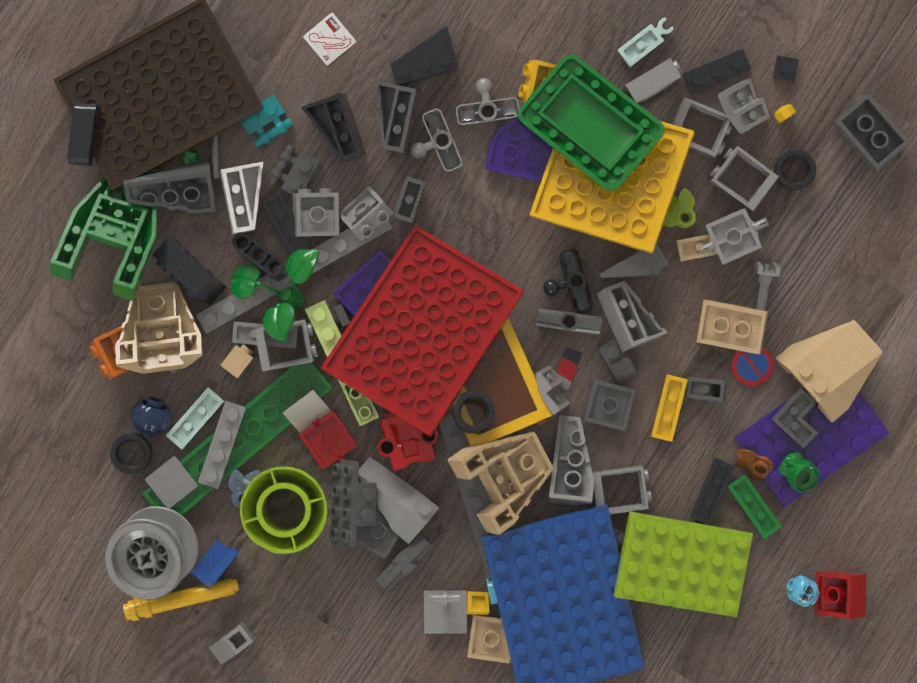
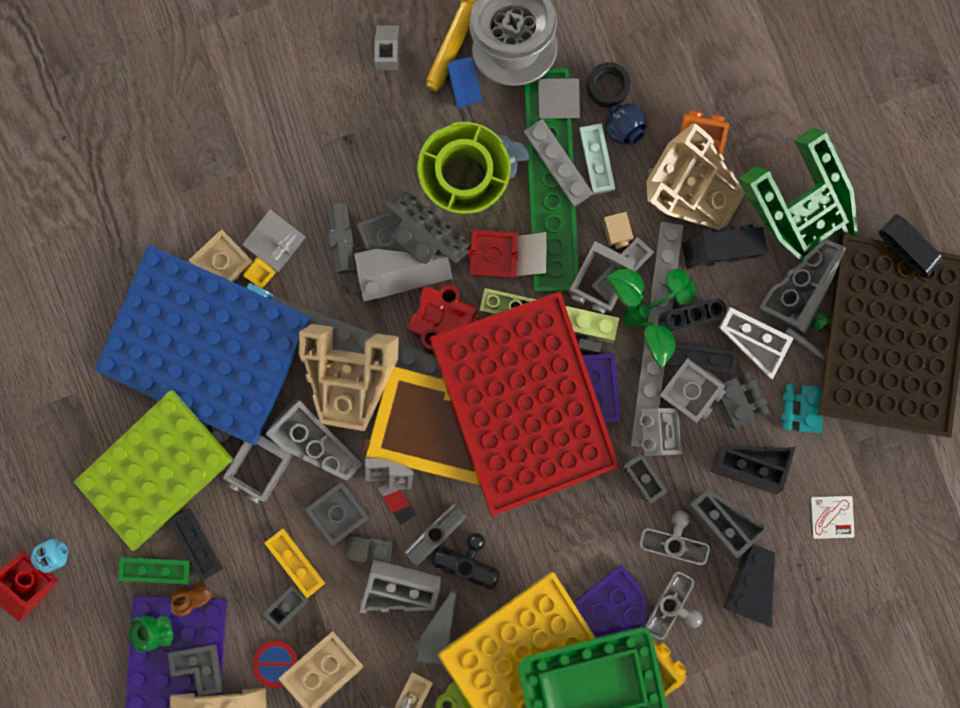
camera: 125 degrees right, 5 degrees down
(485, 400) = (433, 404): black tyre -> none

